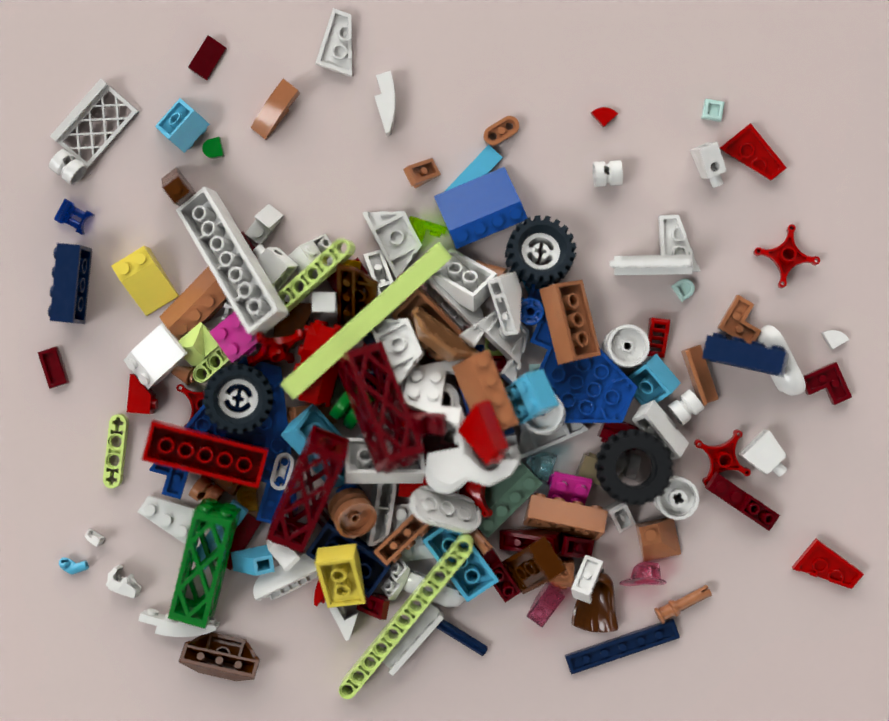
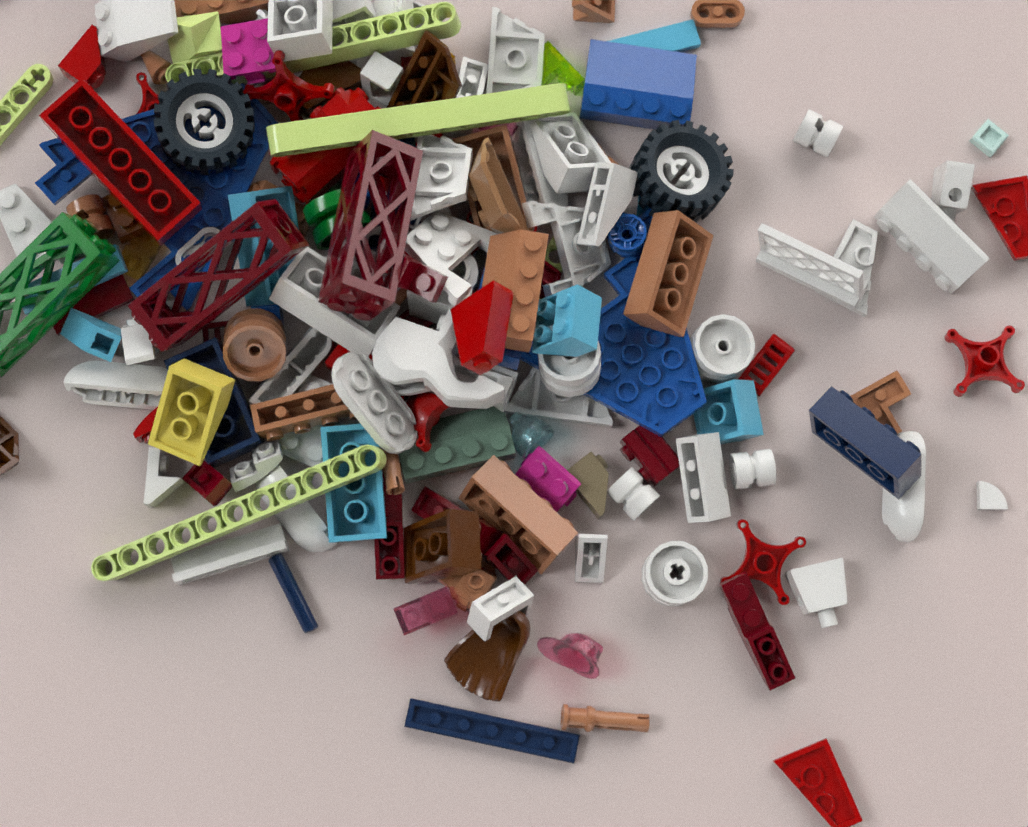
camera: 15 degrees right, 10 degrees down
(604, 115) = (853, 67): red tile -> none
(658, 539) = (620, 618): nougat slope -> none
(660, 470) = (671, 465): black tyre -> none
(683, 288) = (832, 326): light aqua tile -> none
(699, 374) = (793, 442): nougat panel -> none
(713, 200) = (930, 237): none -> white slope
(830, 379) = (957, 544): dark red plate -> none

